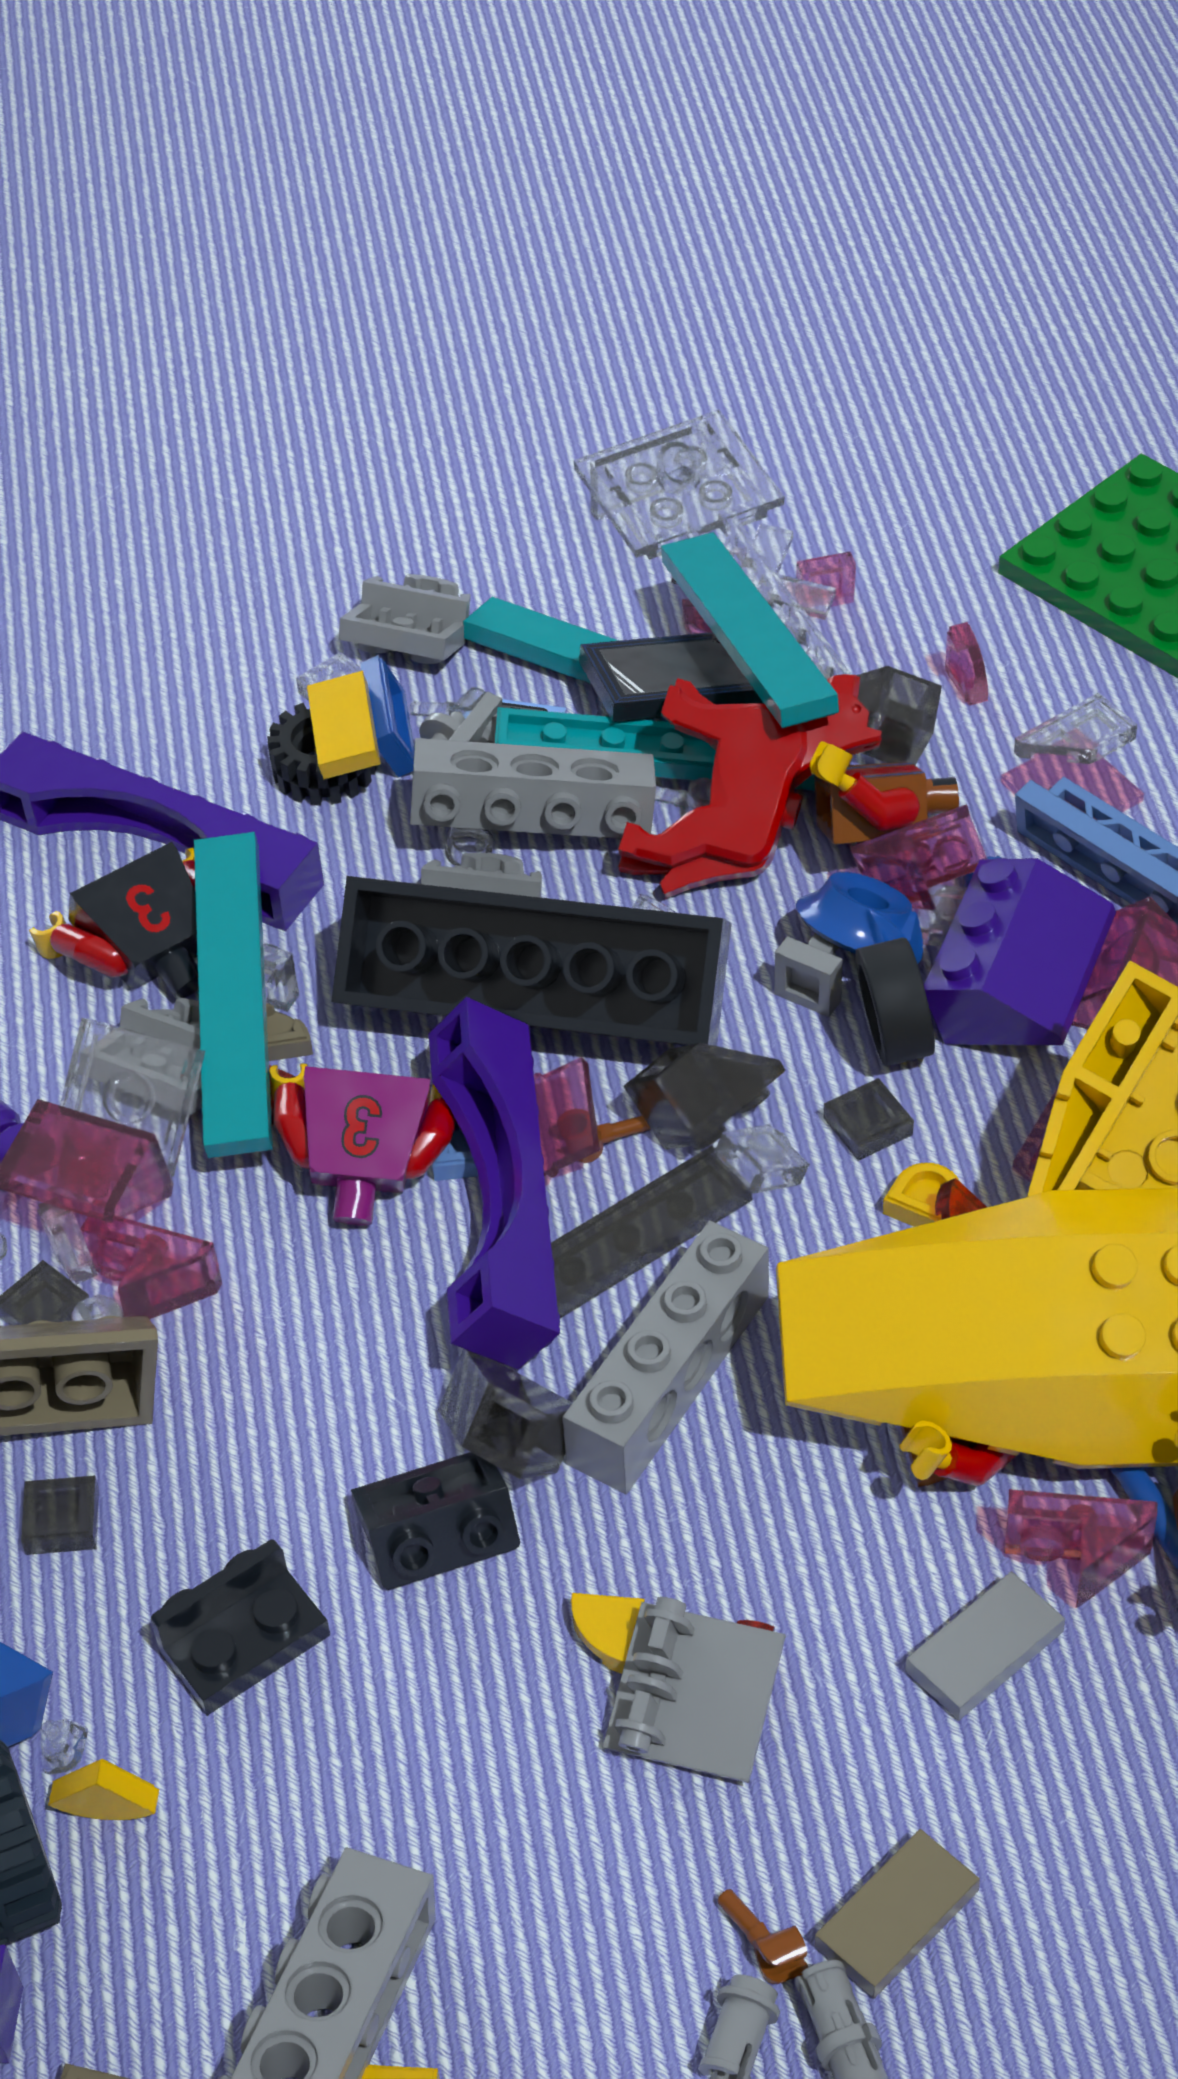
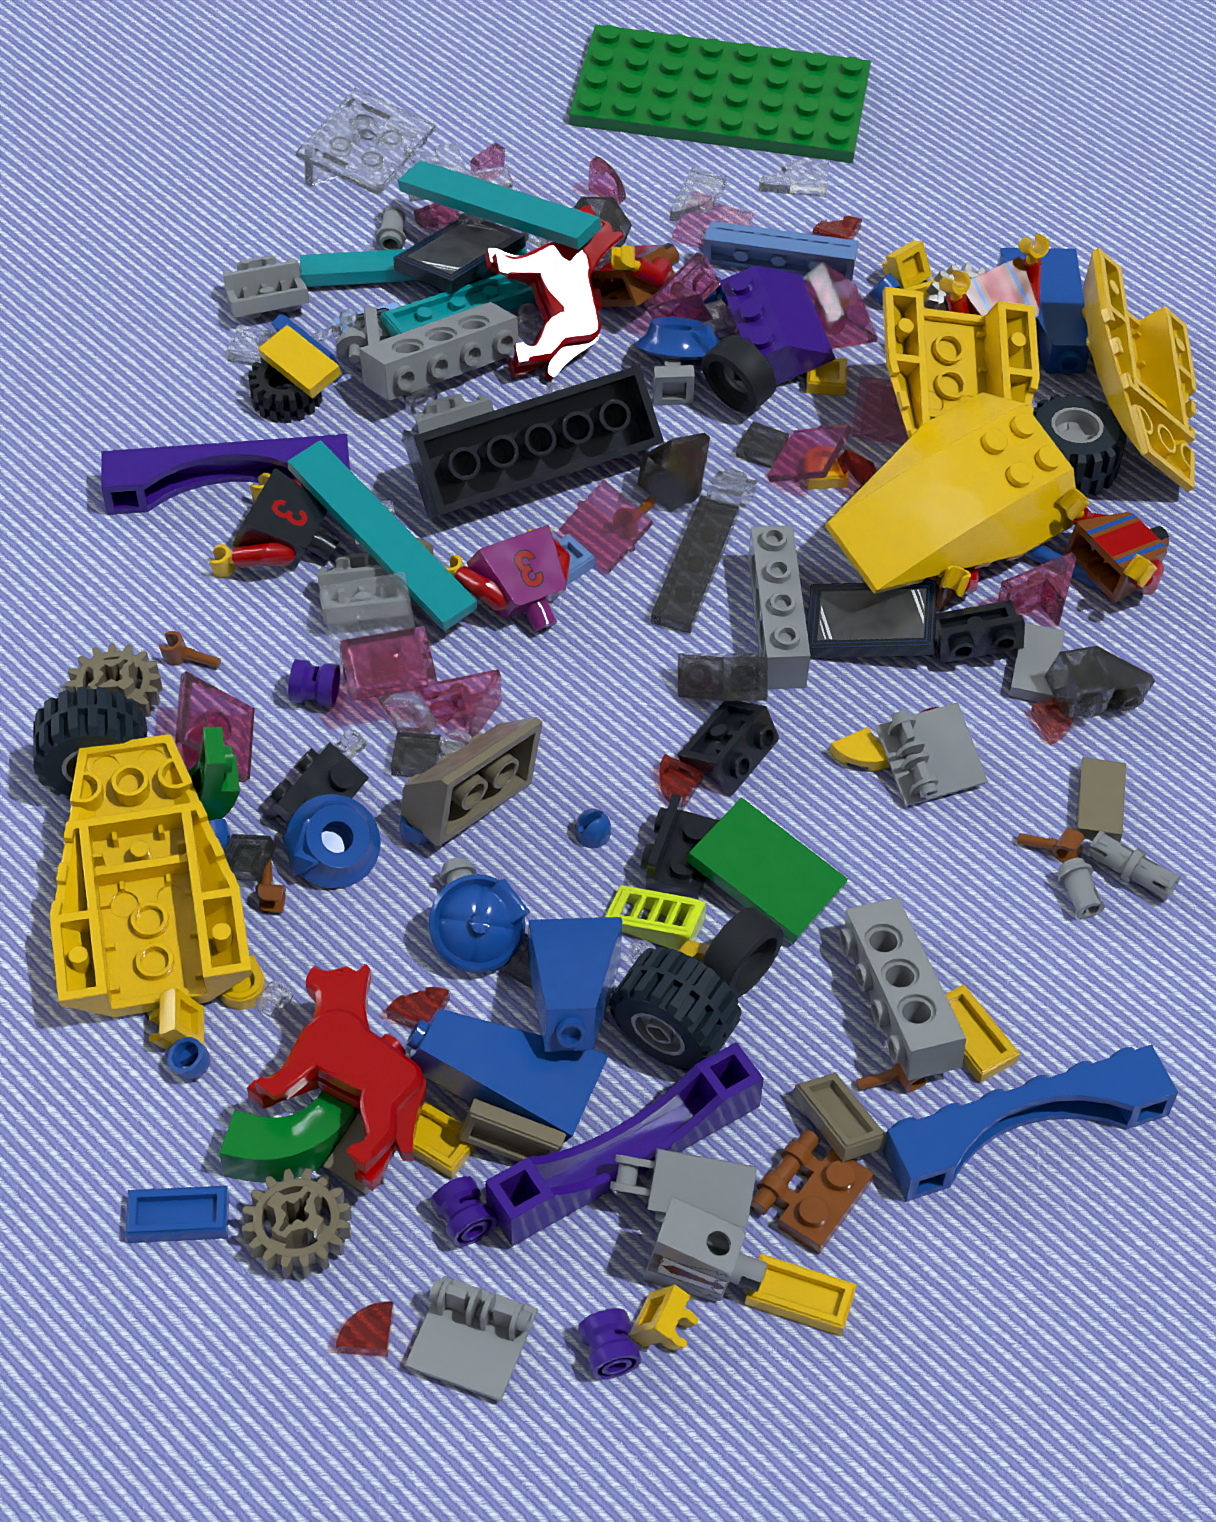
camera: 40 degrees left, 5 degrees up
(60, 1515) = (531, 851): clear smoke tile -> none
(145, 1745) = (673, 906): none -> neon yellow slope
(153, 1822) = (744, 950): none -> black tyre
(156, 1532) = (598, 830): none -> blue hinge
(314, 1726) = (767, 869): none -> green tile
(329, 1529) = (678, 779): none -> clear red tile
(508, 1291) = (664, 597): dark purple arch -> none
(627, 618) = (391, 233): none -> light grey pin
(784, 1458) = (858, 623): none -> tile
(911, 1161) = (809, 453): none -> clear pink piece
(922, 1545) = (978, 631): none -> black bracket
(943, 1742) = (1051, 720): none -> clear red tile
(1029, 1723) = (1095, 682): none -> clear smoke slope
(1038, 1067) = (828, 378): none -> yellow tile

